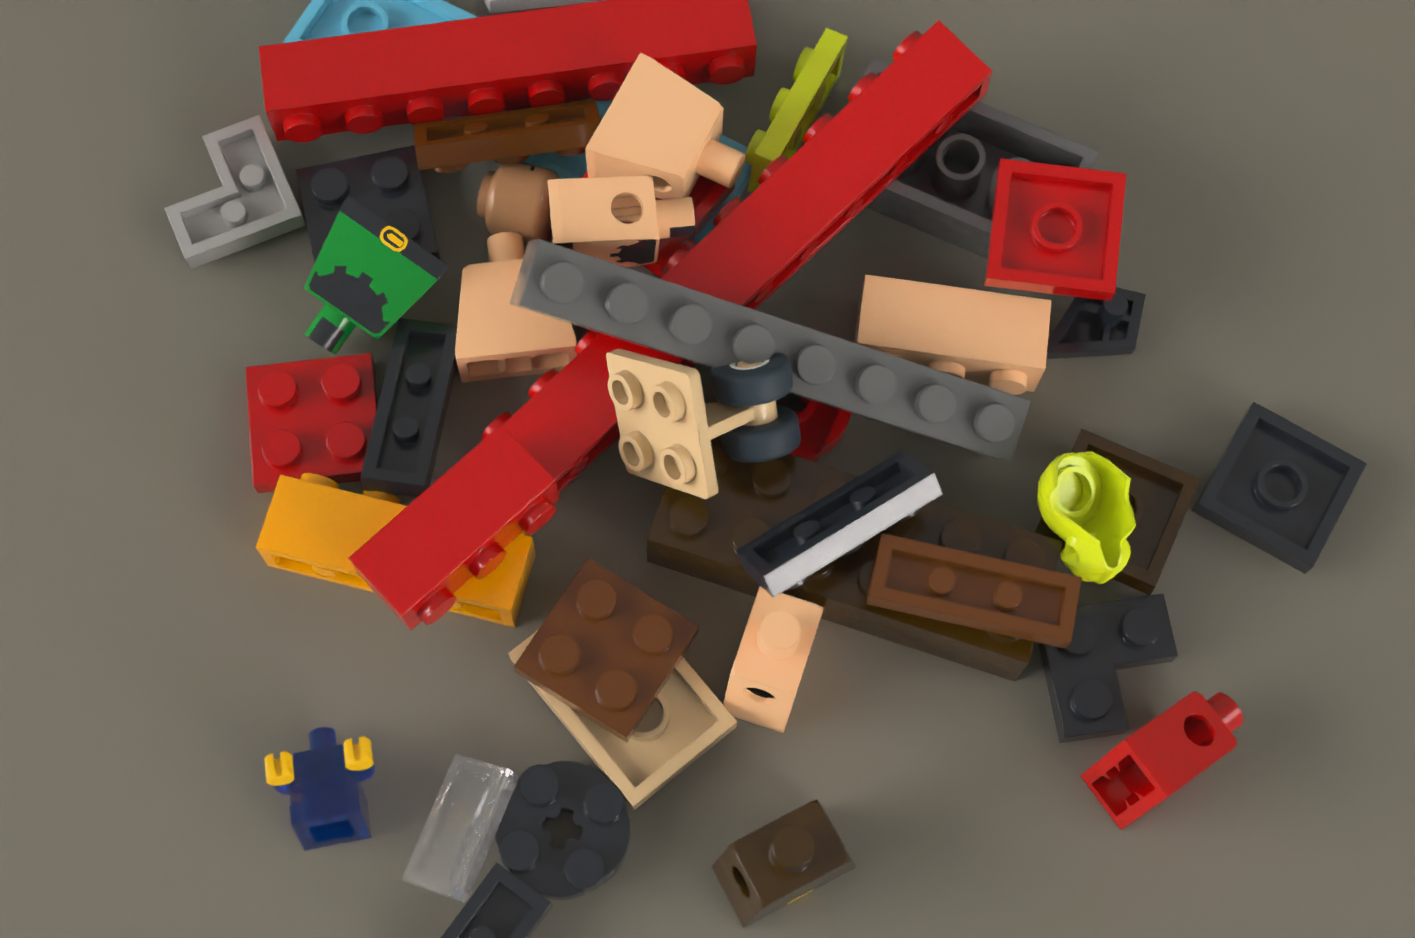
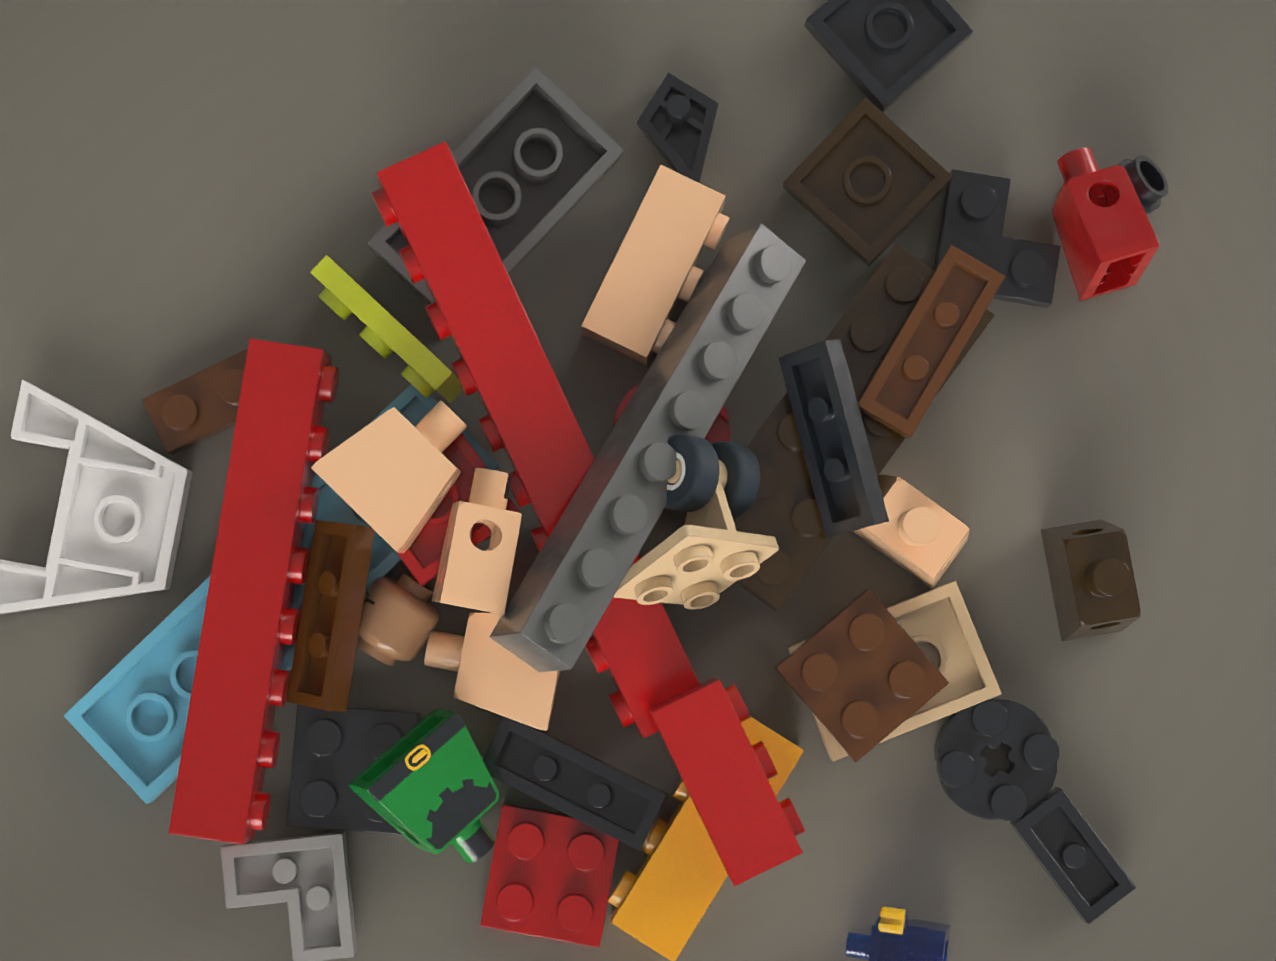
camera: 70 degrees left, 15 degrees up
(460, 828) = (971, 846): clear tile -> none
(1056, 229) = (606, 137): red plate -> none
(1090, 509) = (877, 209): neon yellow hair -> none
(1227, 791) = (1147, 181): none -> black plate

